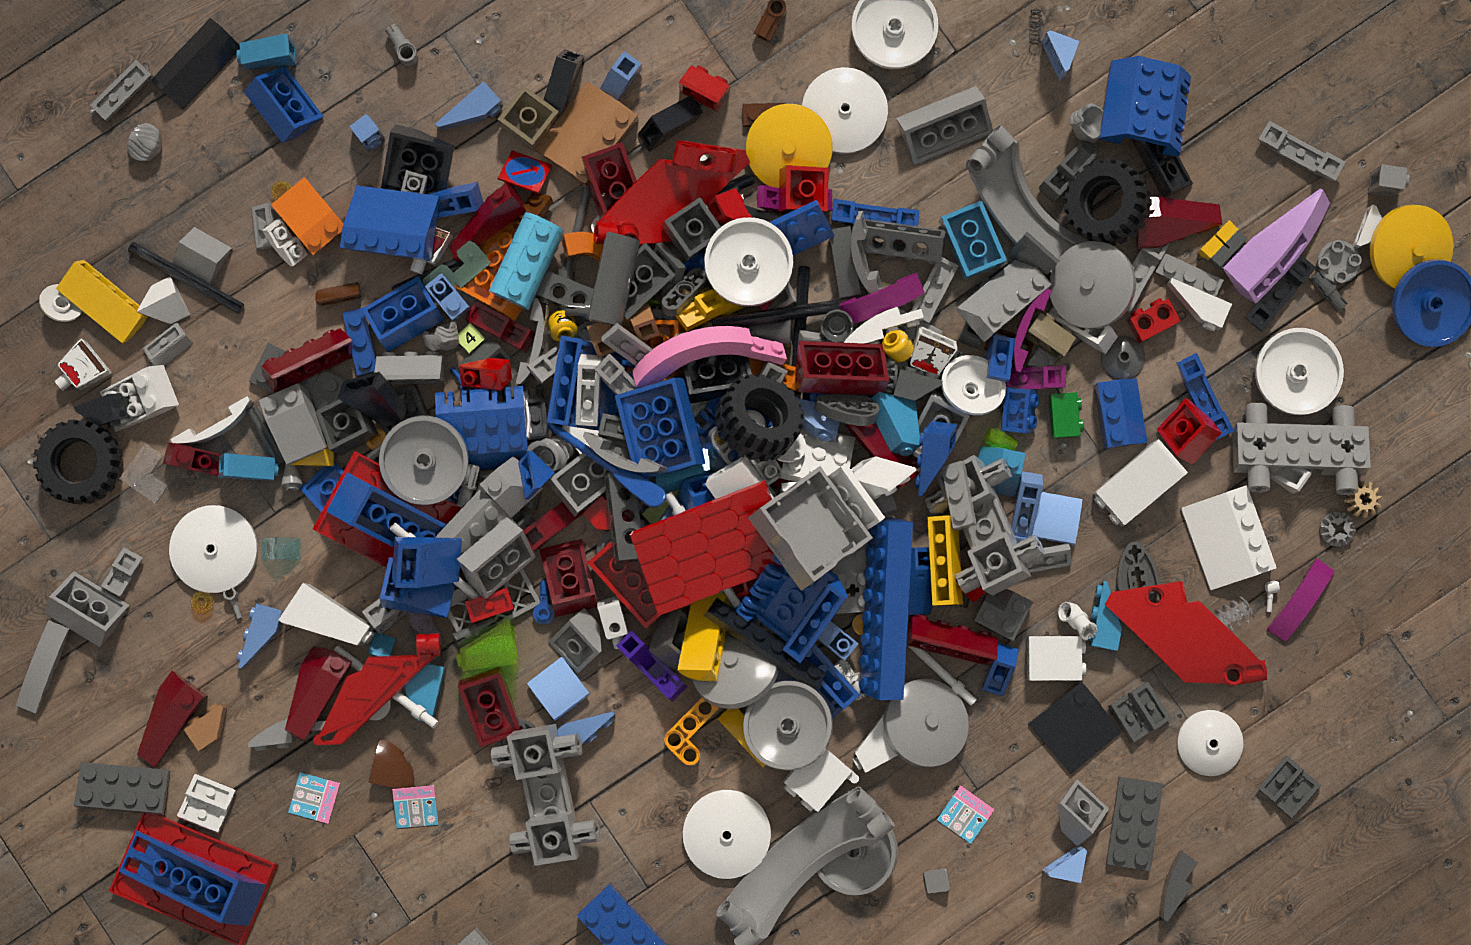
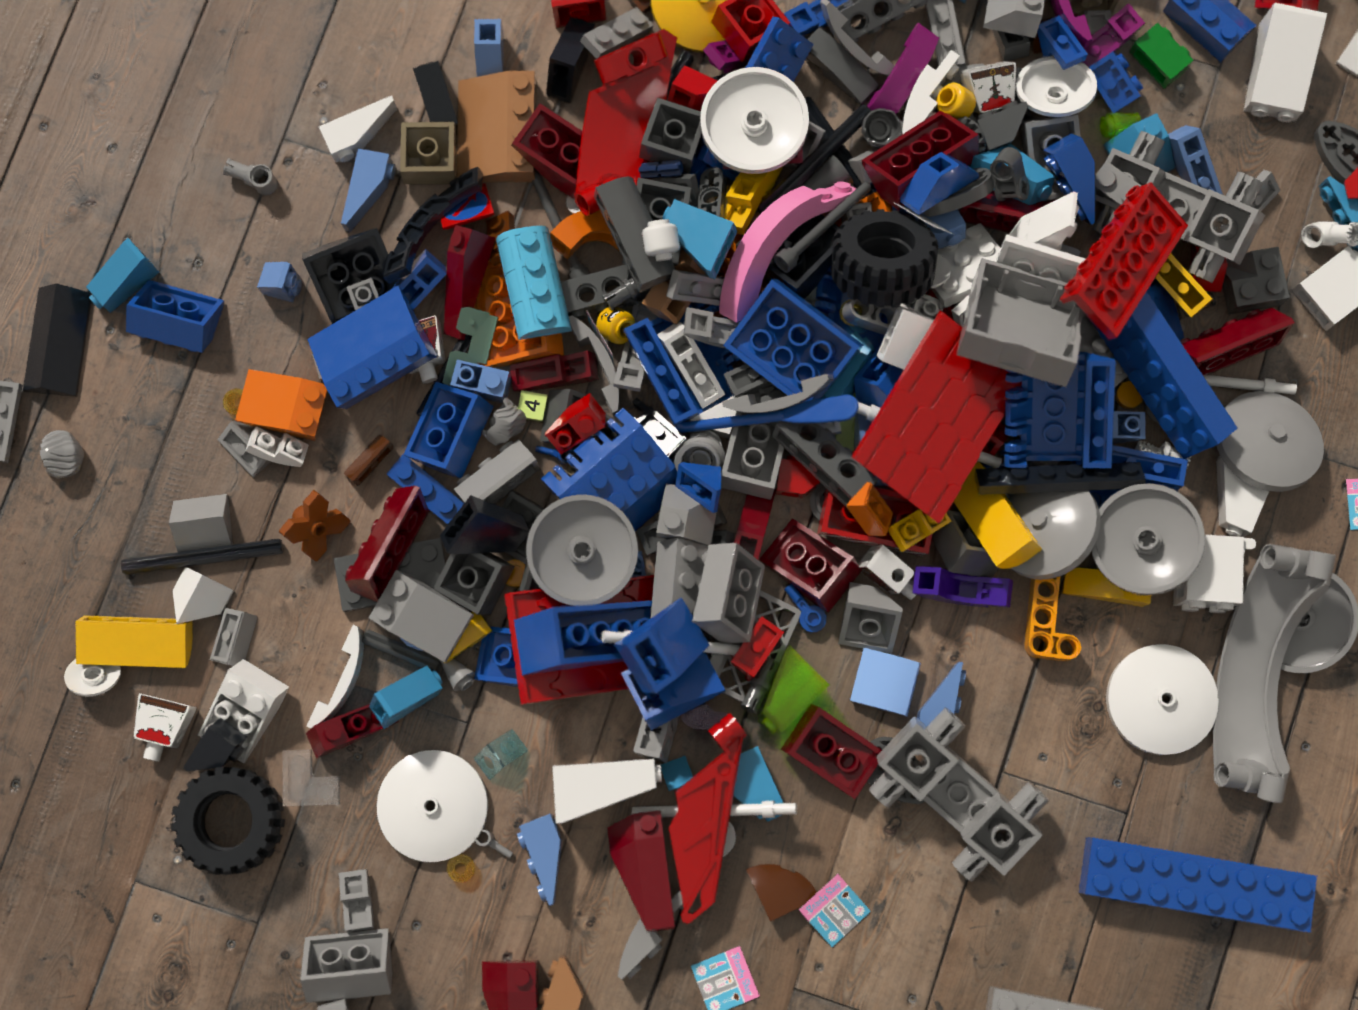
camera: 30 degrees left, 5 degrees down
(270, 310) = (312, 523): none -> dark orange plant
(468, 485) = (645, 554): light grey axle -> none
(489, 65) = (356, 129): none -> white slope
(490, 162) = (425, 218): none -> black tile
(621, 298) = (661, 239): none -> white head
(626, 574) = (870, 511): none -> orange slope
(643, 605) = (915, 528): none -> yellow slope
(652, 313) = (702, 235): none -> dark azure slope
(670, 248) = (666, 169): none -> dark blue piece
(699, 369) = (787, 258): none -> dark grey piece
(713, 129) = (617, 33): none -> light grey plate
(808, 410) = (925, 219): none -> white sticker
(835, 392) = (936, 181): none -> blue slope
(887, 423) = (1009, 180): none -> dark grey piece
(909, 537) = (1125, 259): none -> red bracket
(1001, 670) = (1300, 341): blue slope -> none
(1057, 518) = (1233, 152): light blue slope -> none

